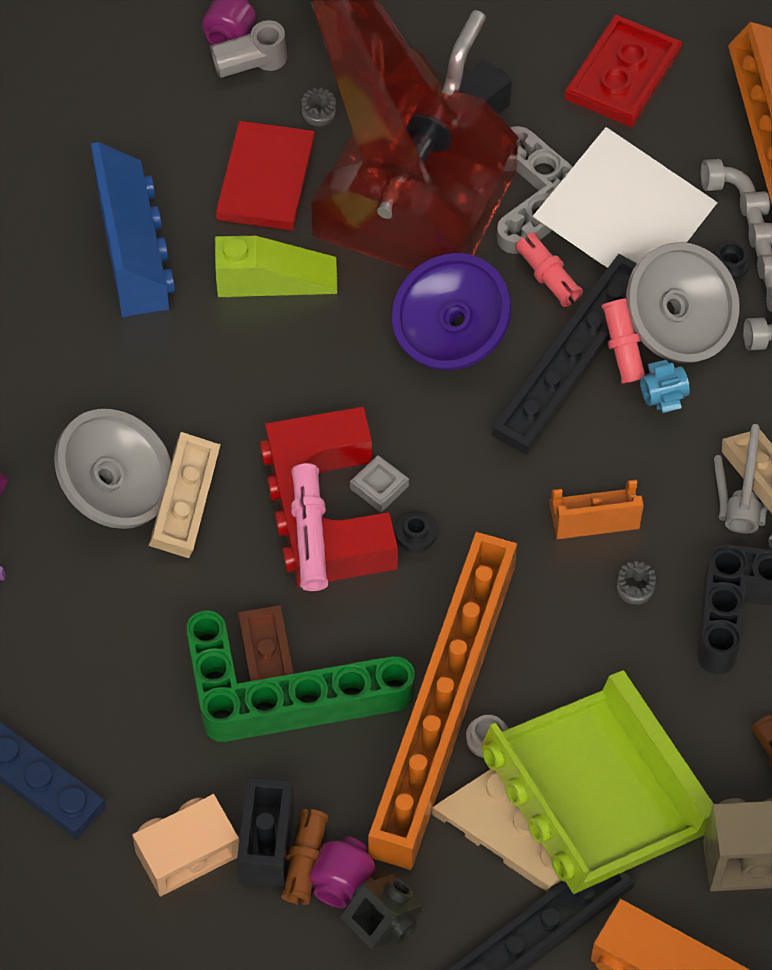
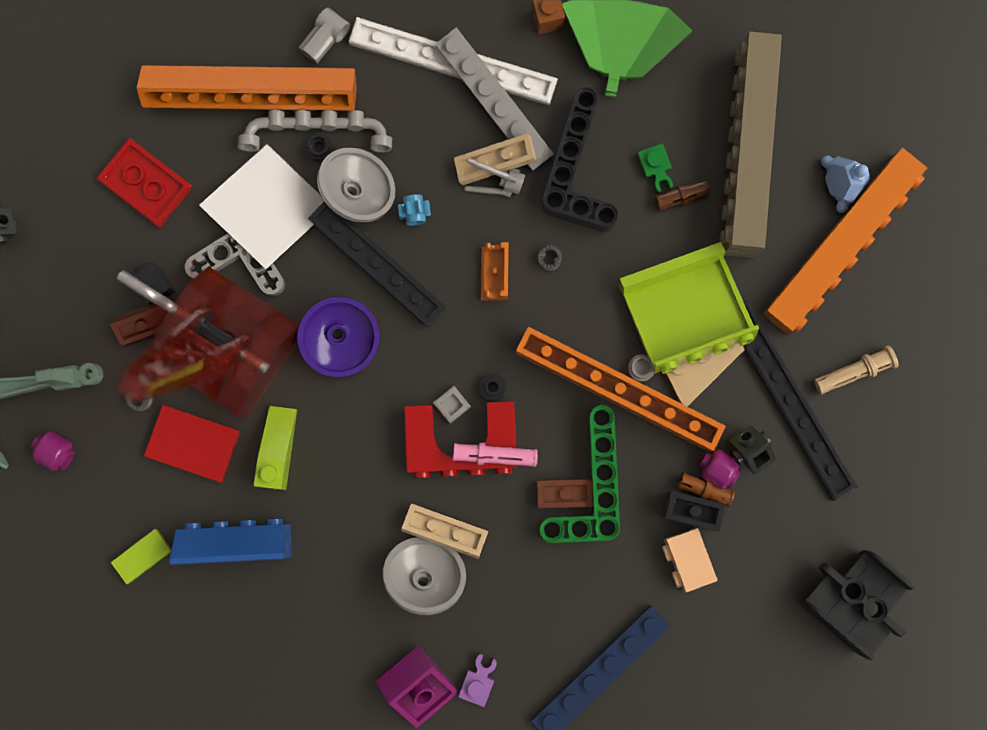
camera: 80 degrees left, 25 degrees up
(89, 128) = (142, 556): none -> lime tile
(260, 49) = (83, 444): light grey piece -> none
(549, 269) = (307, 266): coral pin -> none
(623, 340) = (377, 229): coral pin -> none

